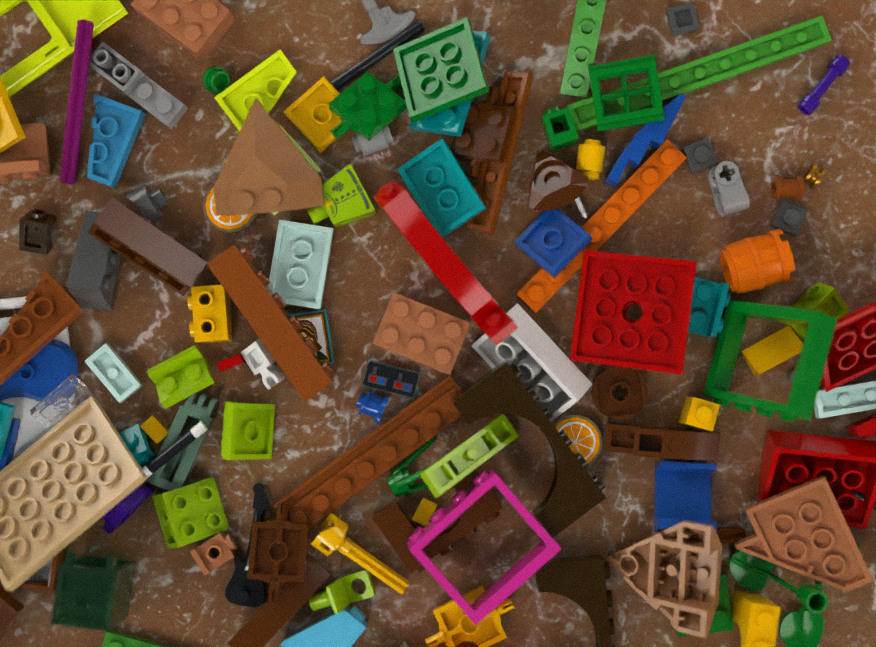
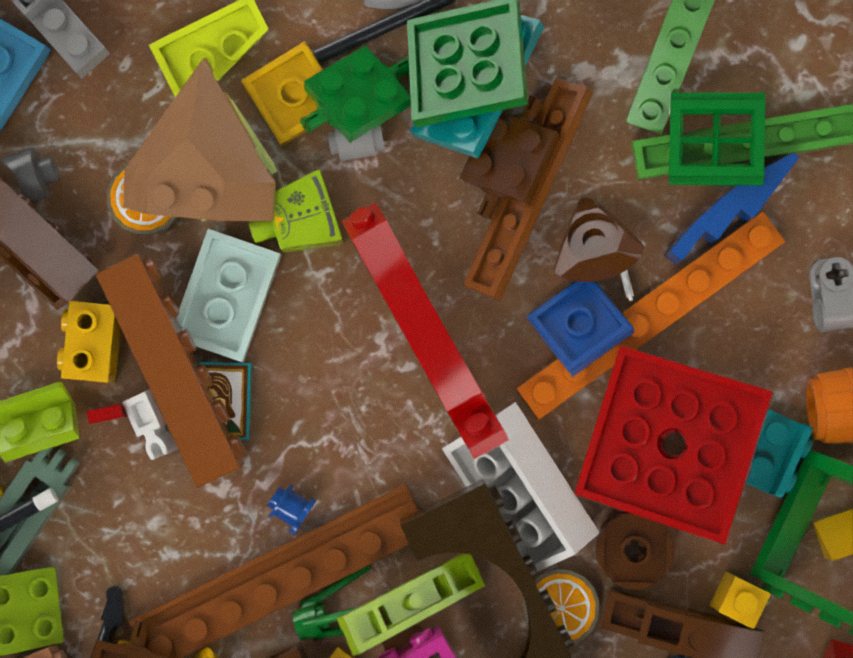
camera: 10 degrees right, 0 degrees up
(216, 79) = (155, 20): green plate -> none
(247, 431) = (112, 513): lime bracket -> none
(391, 379) = (323, 475): tile -> none
(421, 333) = (375, 421): nougat brick -> none
(441, 188) = (439, 225): teal plate -> none
(563, 118) = (625, 158): green brick -> none
(591, 158) = (652, 220): yellow brick -> none
(682, 19) = (813, 50): dark grey plate -> none
(699, 156) = (803, 242): dark grey plate -> none

